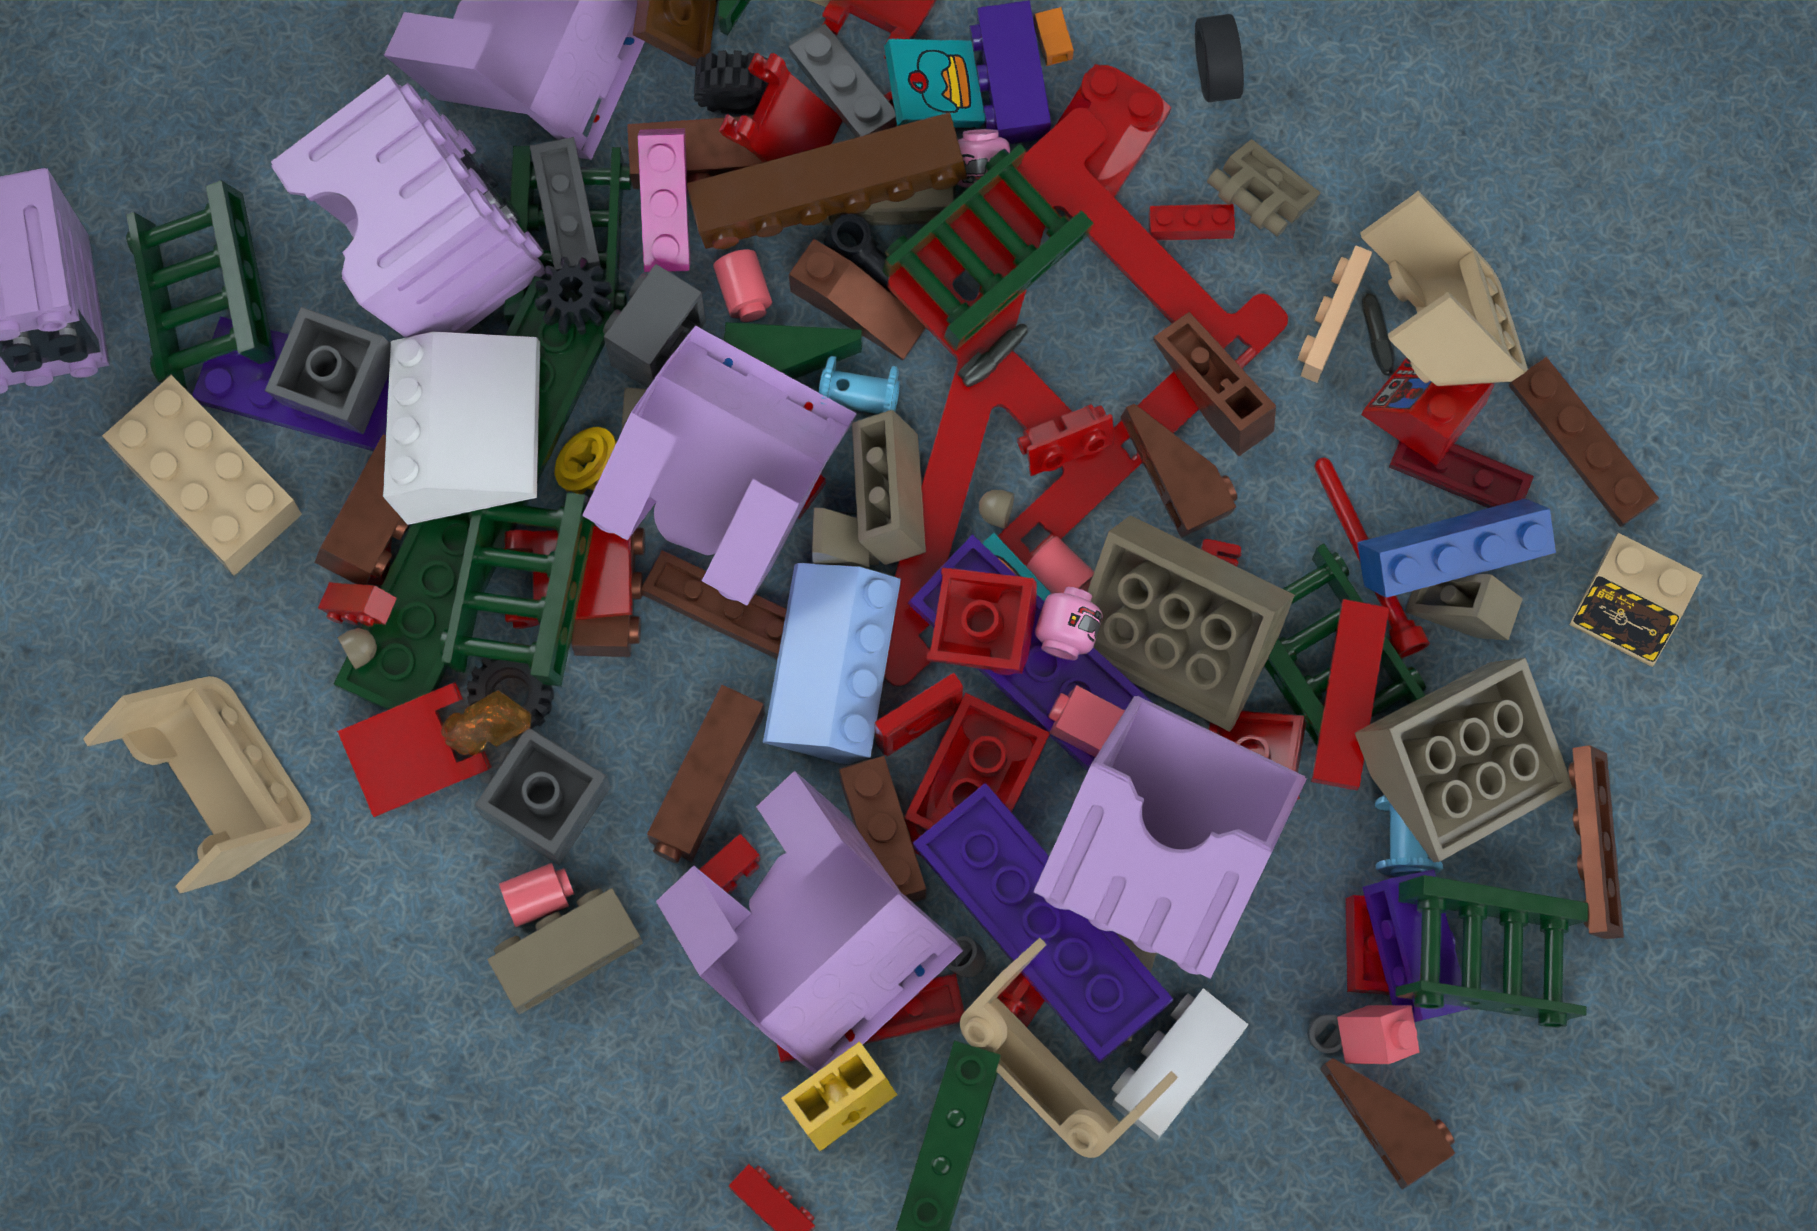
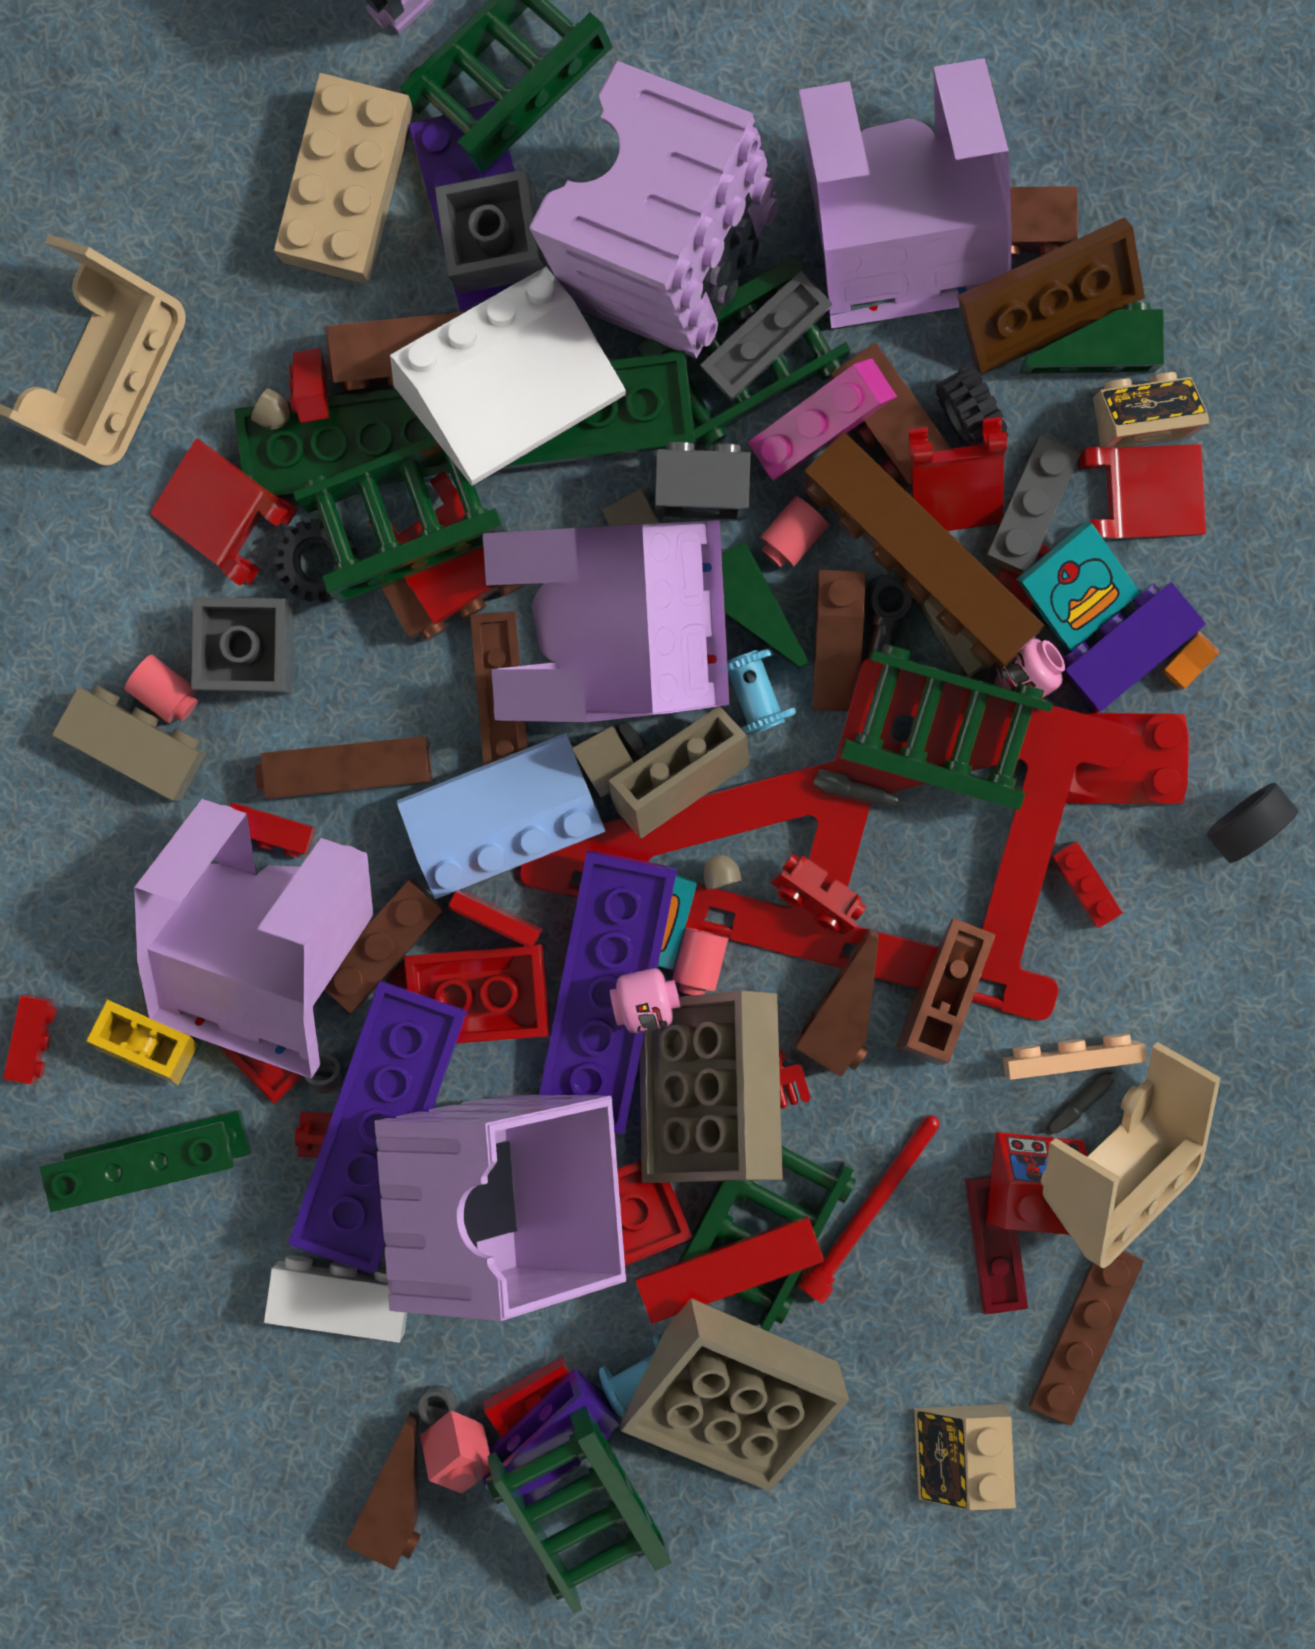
camera: 60 degrees right, 15 degrees up
(490, 720) = (274, 565): clear orange plate -> none
(573, 278) = (671, 385): black gear -> none
(580, 450) = (566, 485): yellow gear -> none
(984, 621) = (600, 929): red slope -> none
(1040, 1076) = (248, 1209): tan windscreen -> none
(1084, 720) = (572, 1062): coral brick -> none
(1270, 180) = (1163, 933): dark tan plate -> none
(1456, 547) = (916, 1285): brick -> none
(1471, 605) = (875, 1314): dark tan slope -> none
(1596, 830) = (719, 1546): copper plate -> none

